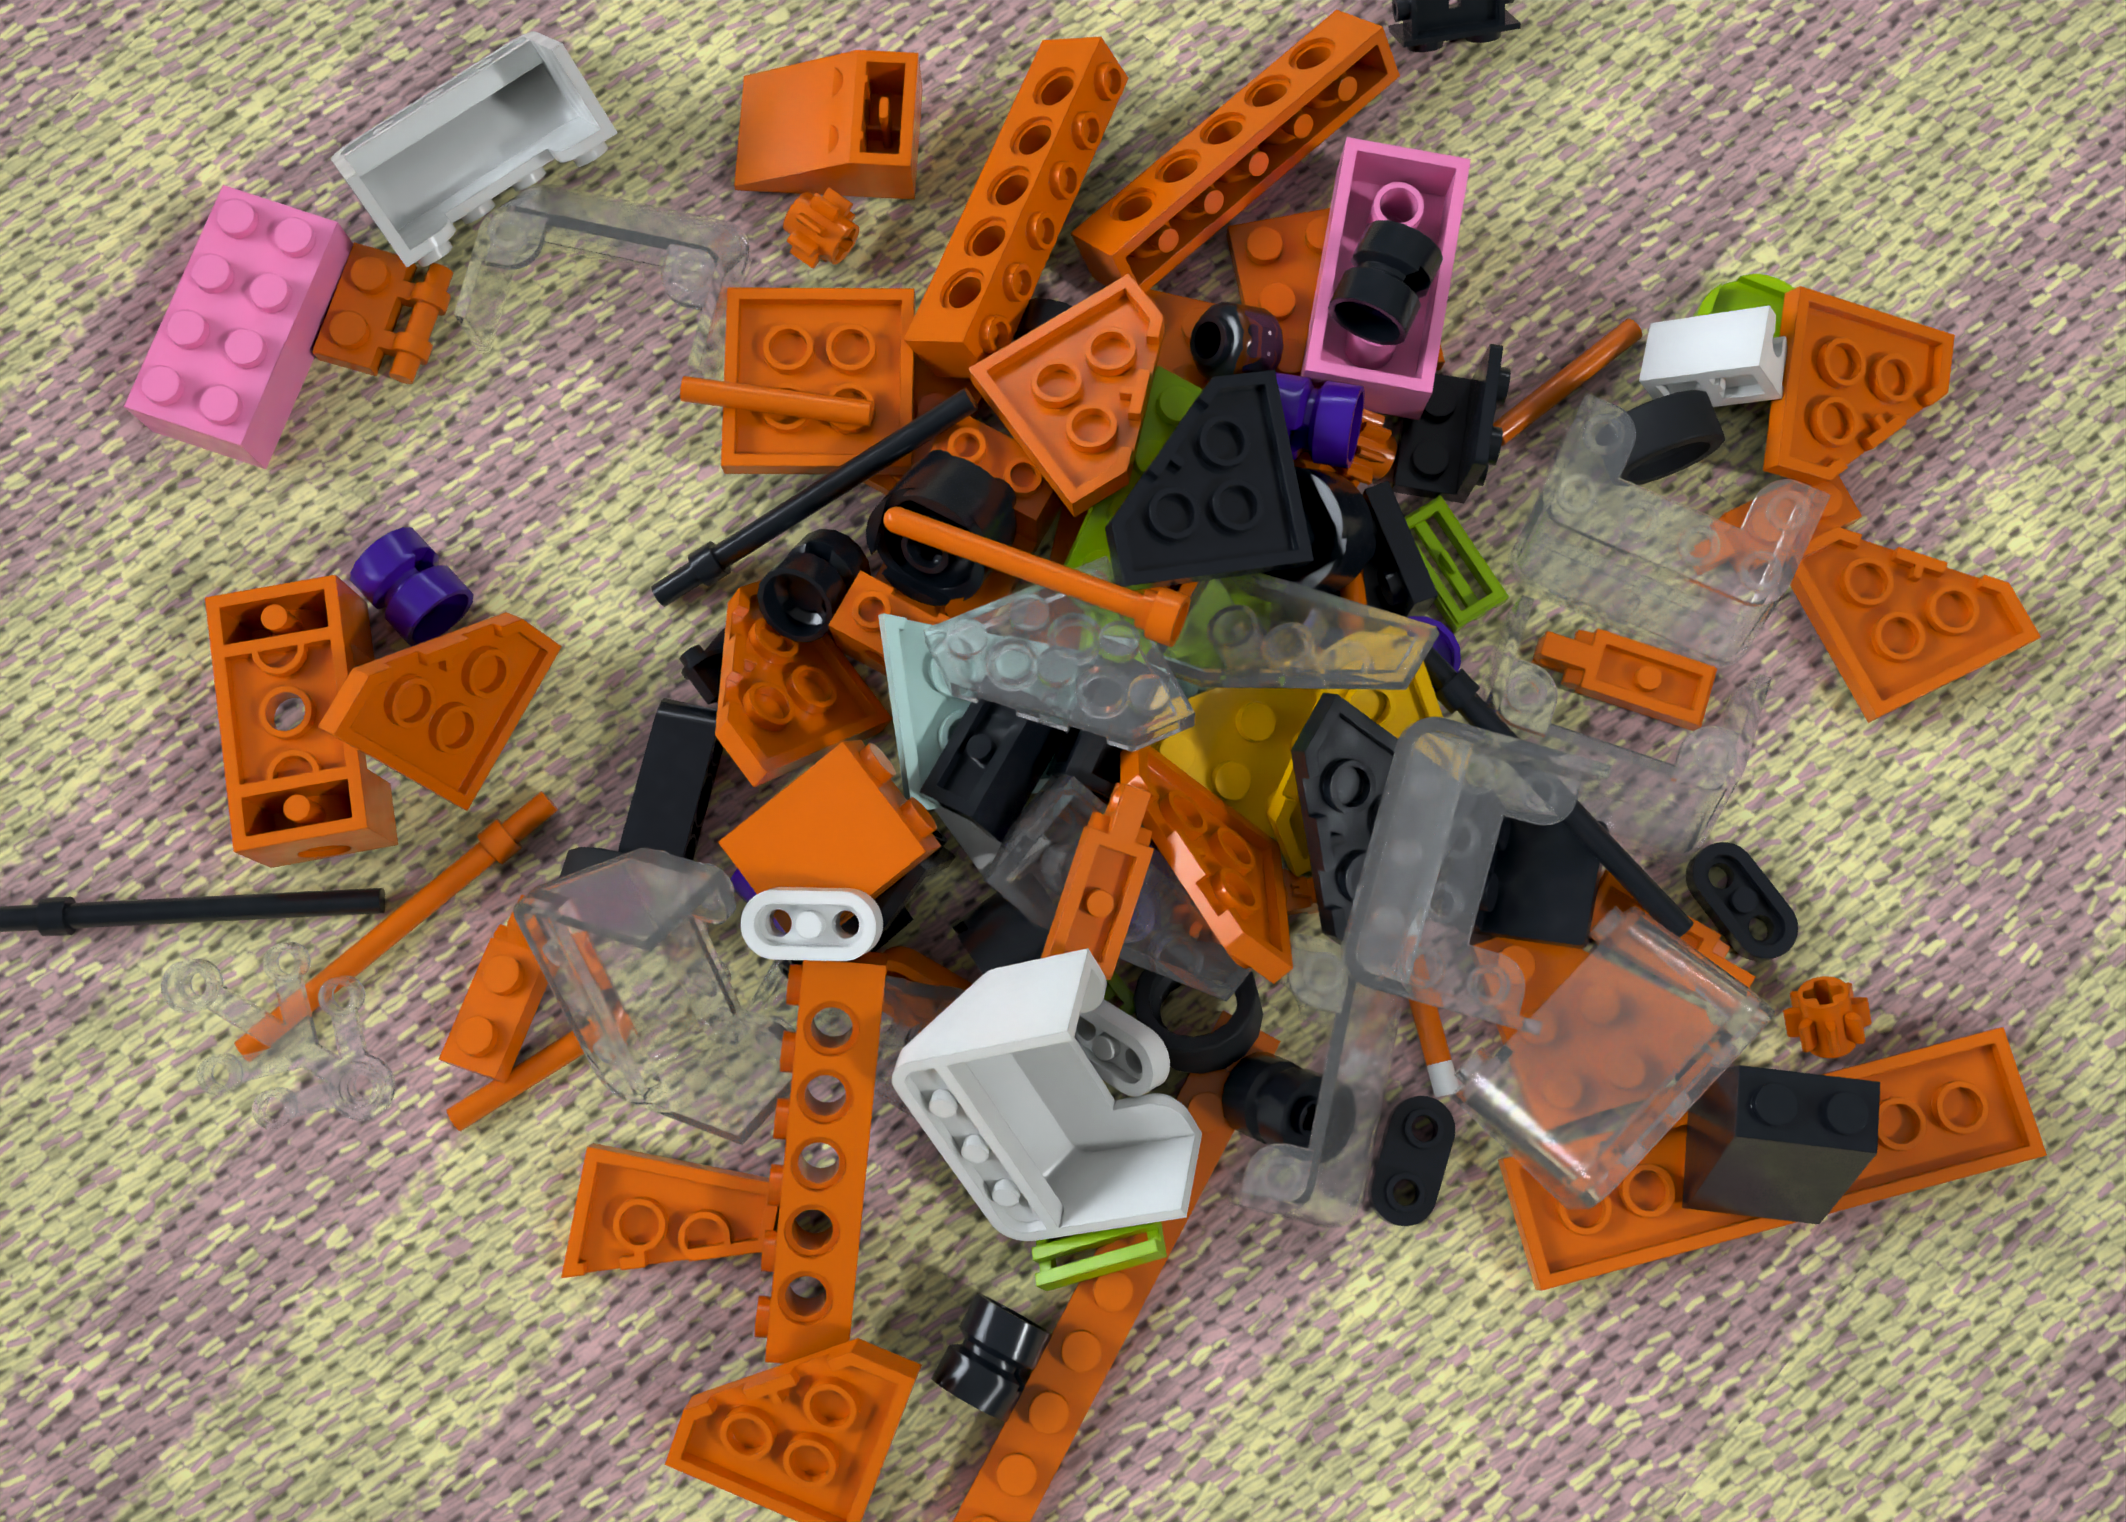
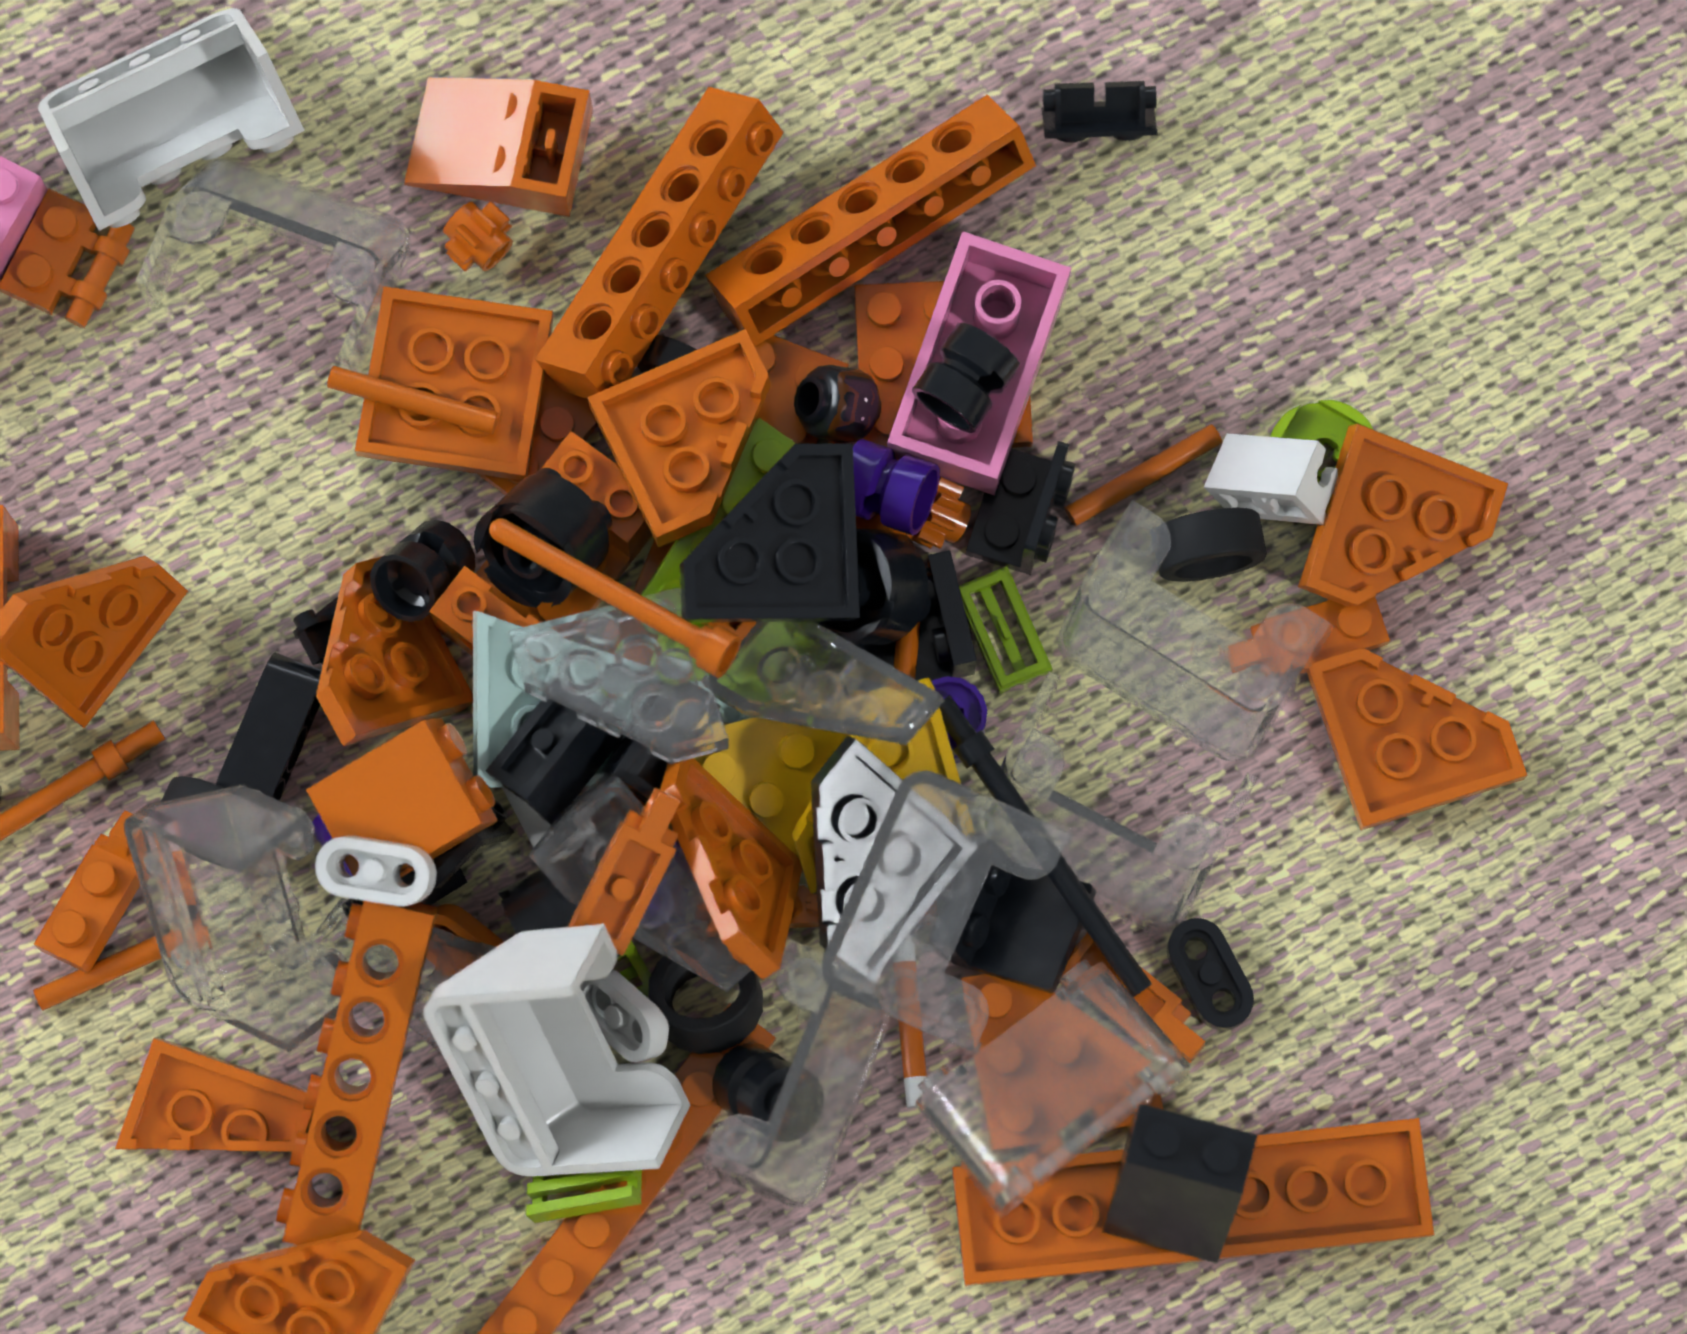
camera: 10 degrees right, 0 degrees up
(407, 580) = (66, 525): dark purple wheel -> none
(713, 561) = (335, 533): black bar -> none
(991, 1357) = (478, 1268): black wheel -> none
(1410, 1159) = (875, 1158): black plate -> none
(1630, 675) = (1149, 756): orange hinge -> none
(1827, 1017) = (1263, 1086): orange gear -> none

